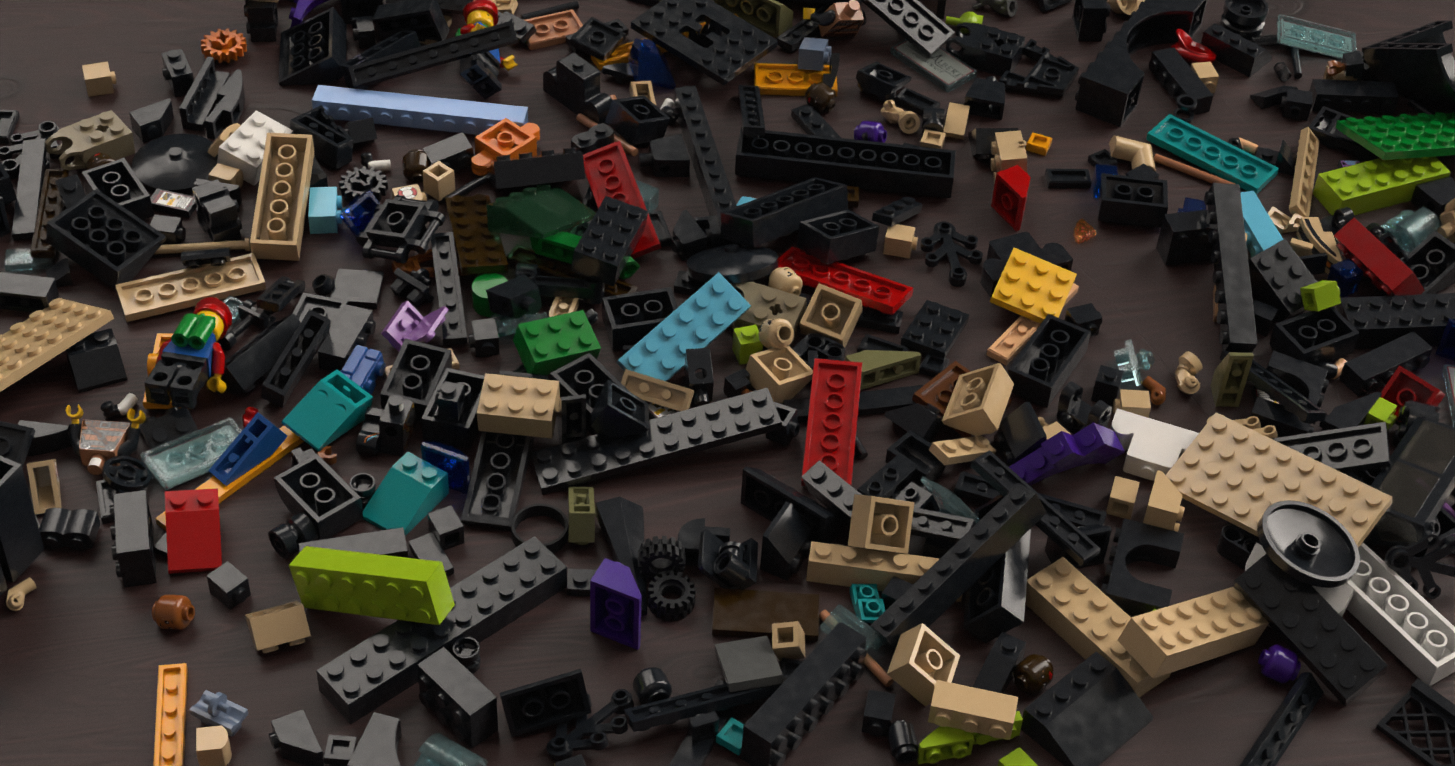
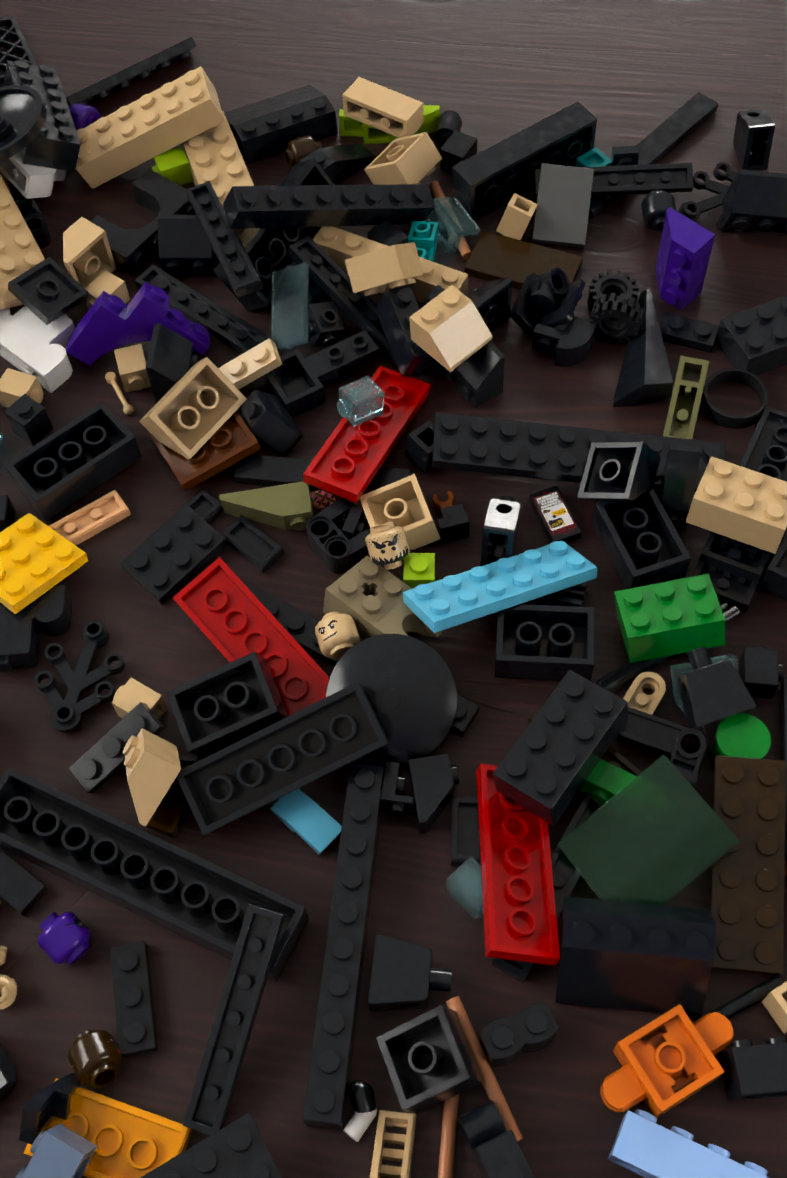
camera: 155 degrees left, 15 degrees up
(657, 391) = (559, 522): tan plate -> none
(797, 467) = (449, 328): none -> tan slope
(831, 314) = (298, 575): tan brick -> none
(846, 425) = (360, 401): none -> clear light blue brick
(865, 188) = (150, 771): none -> tan slope
(1077, 414) = (79, 378): black piece -> none
(1160, 453) = (47, 290): none -> black plate

